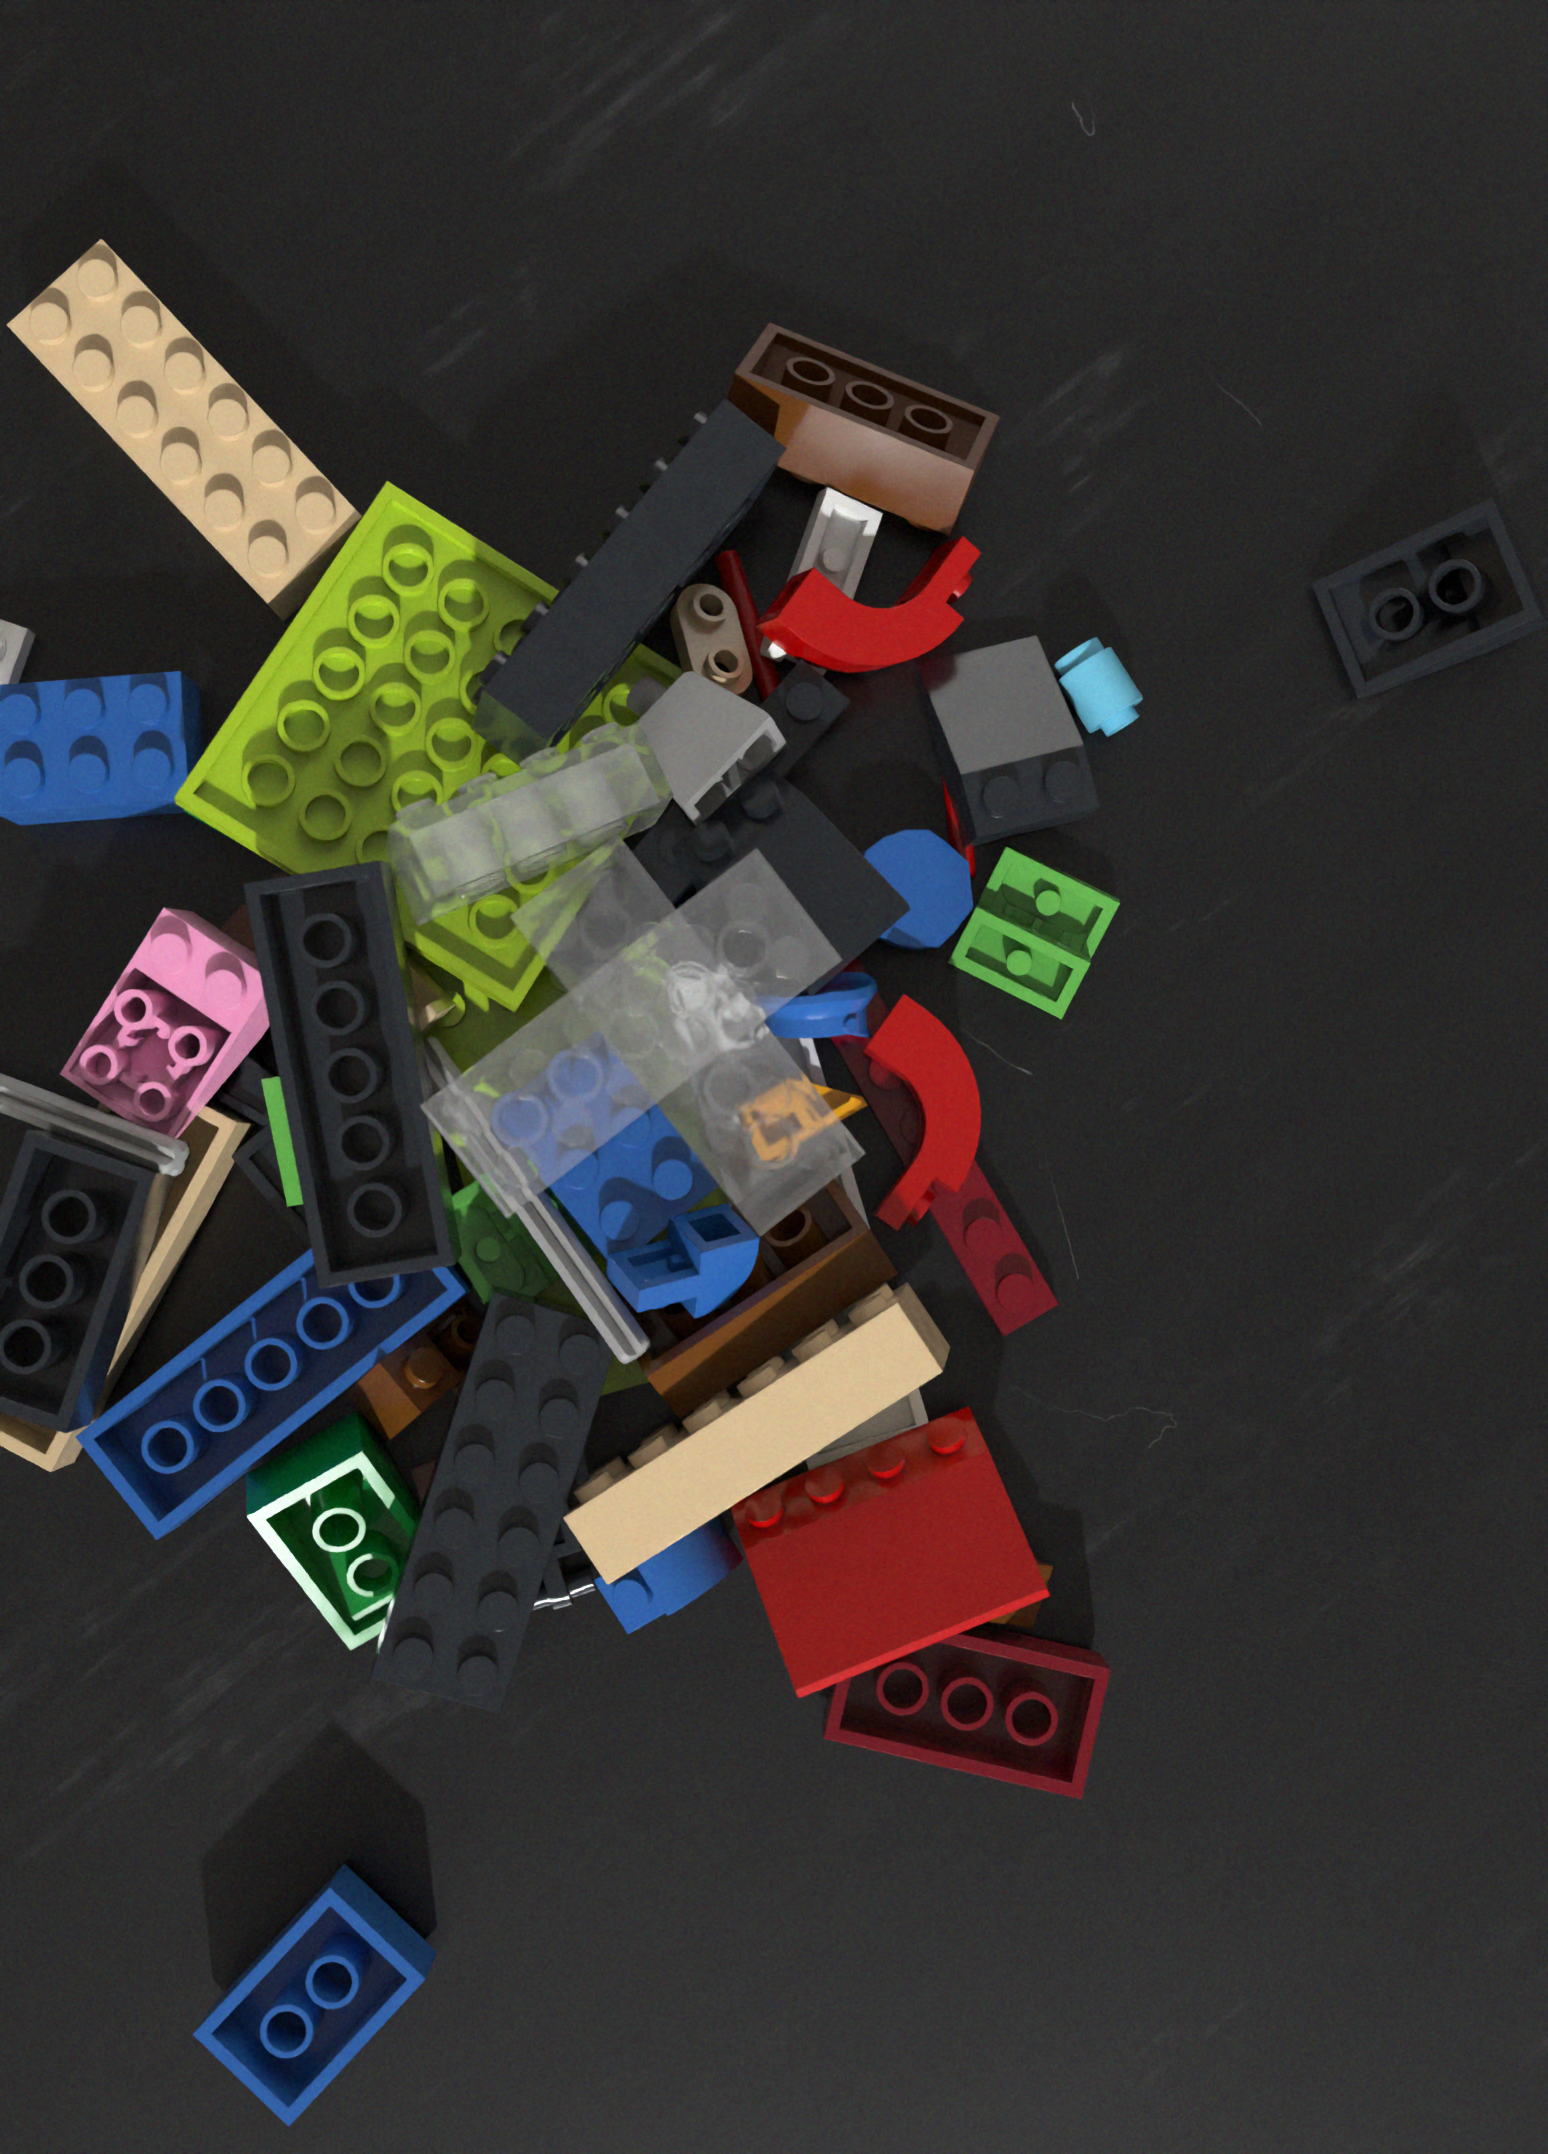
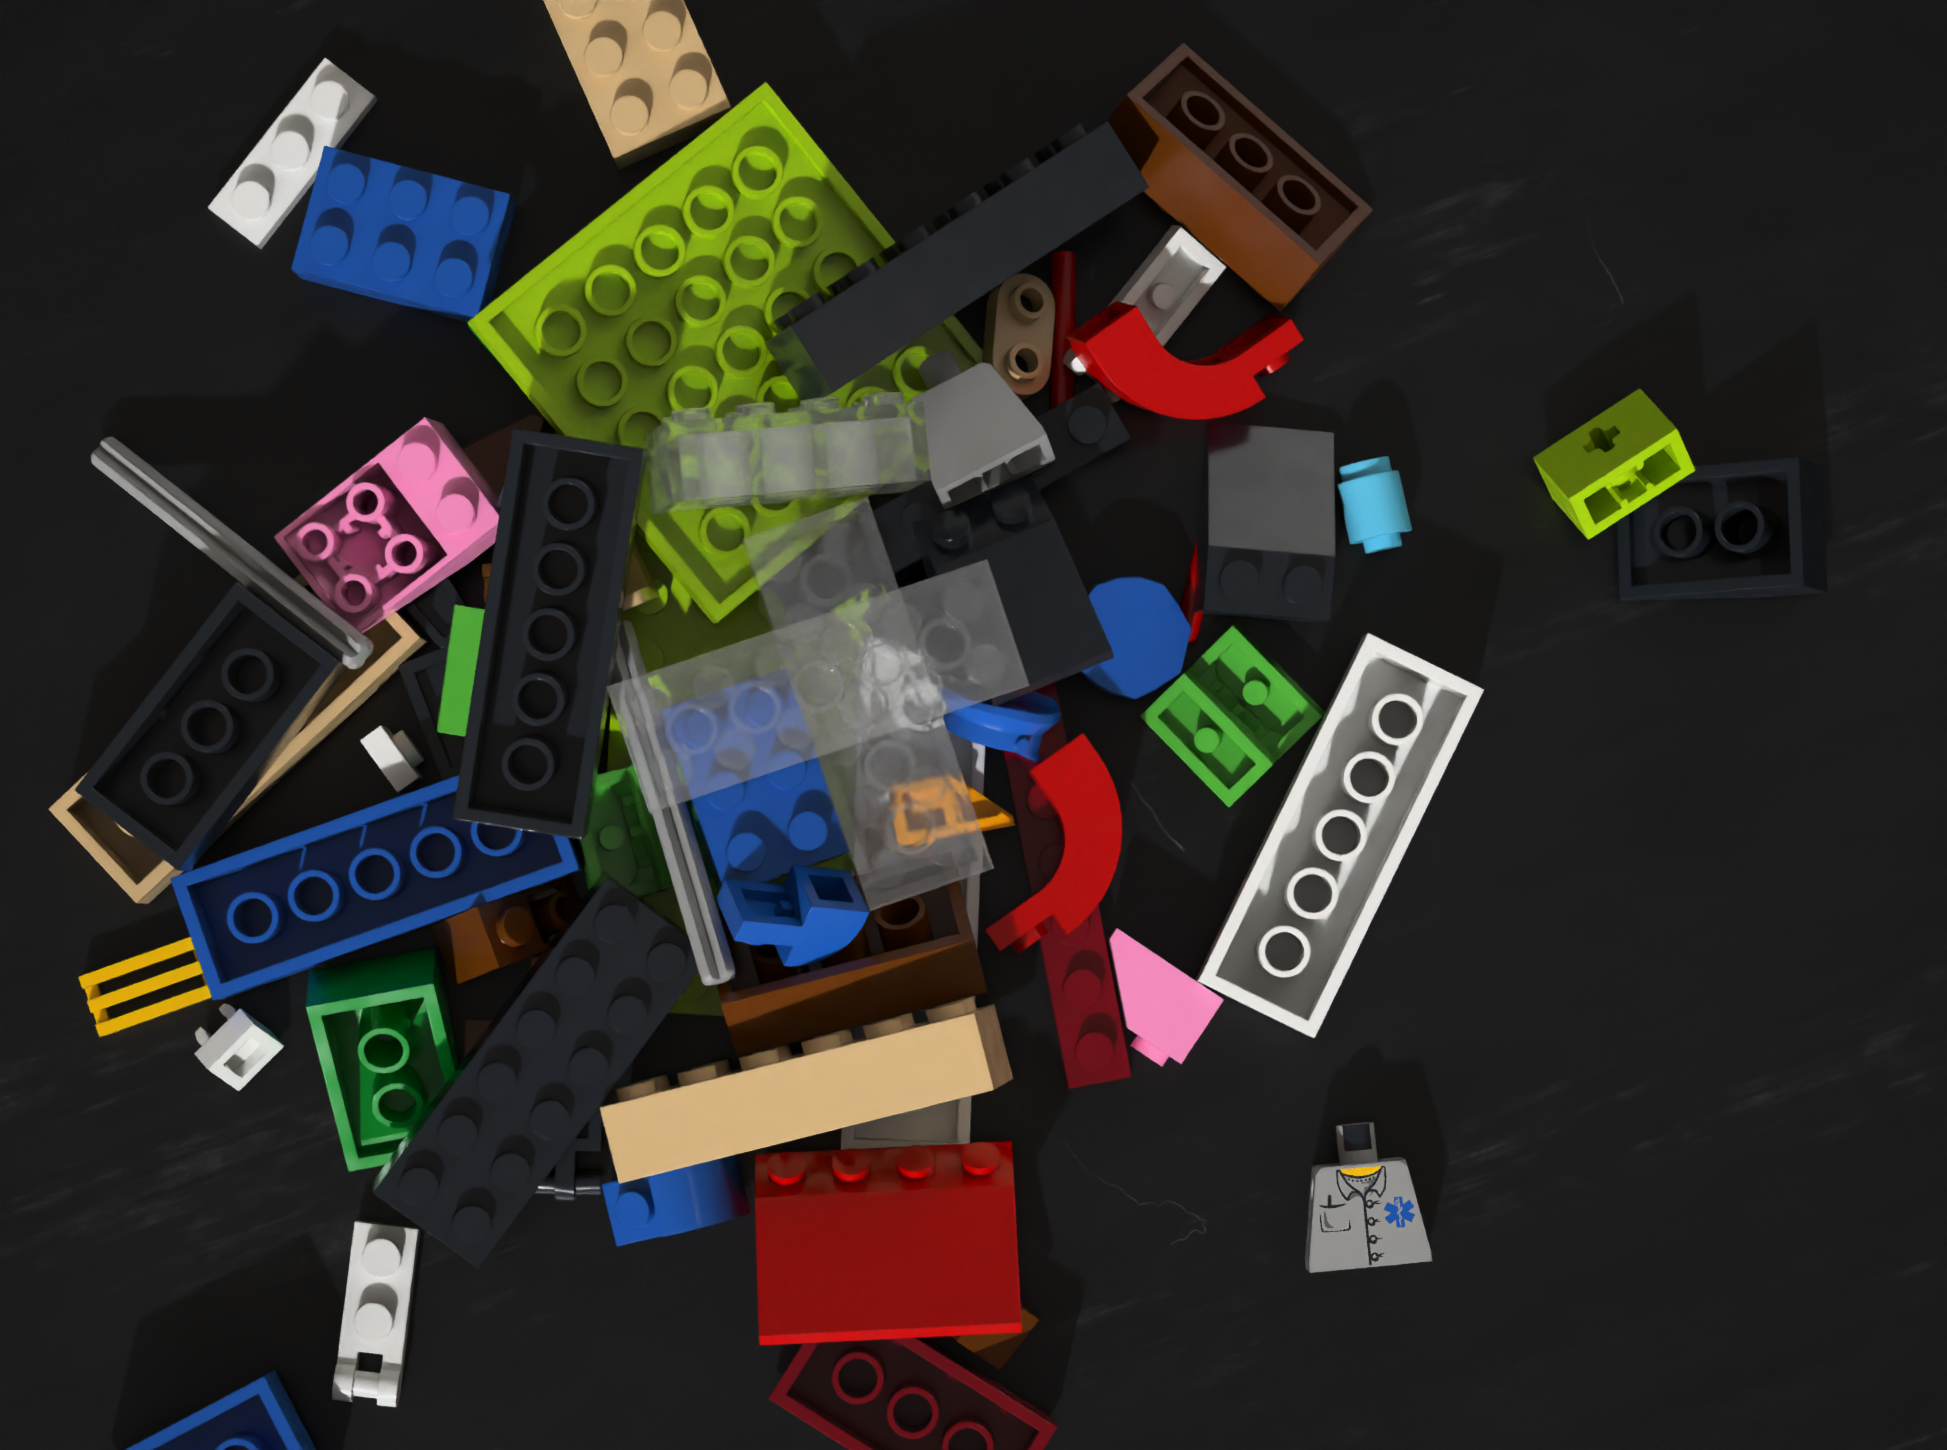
camera: 20 degrees right, 0 degrees up
(60, 1571) = (99, 1003): none -> yellow tile
(202, 1571) = (237, 1047): none -> white tile
(258, 1244) = (395, 757): none -> white plate
(422, 1777) = (376, 1311): none -> white plate
(1061, 1224) = (1159, 1001): none -> bright pink slope
(1178, 1007) = (1339, 835): none -> white brick
(1313, 569) = (1614, 463): none -> lime brick
(1321, 1354) = (1363, 1208): none -> light grey torso

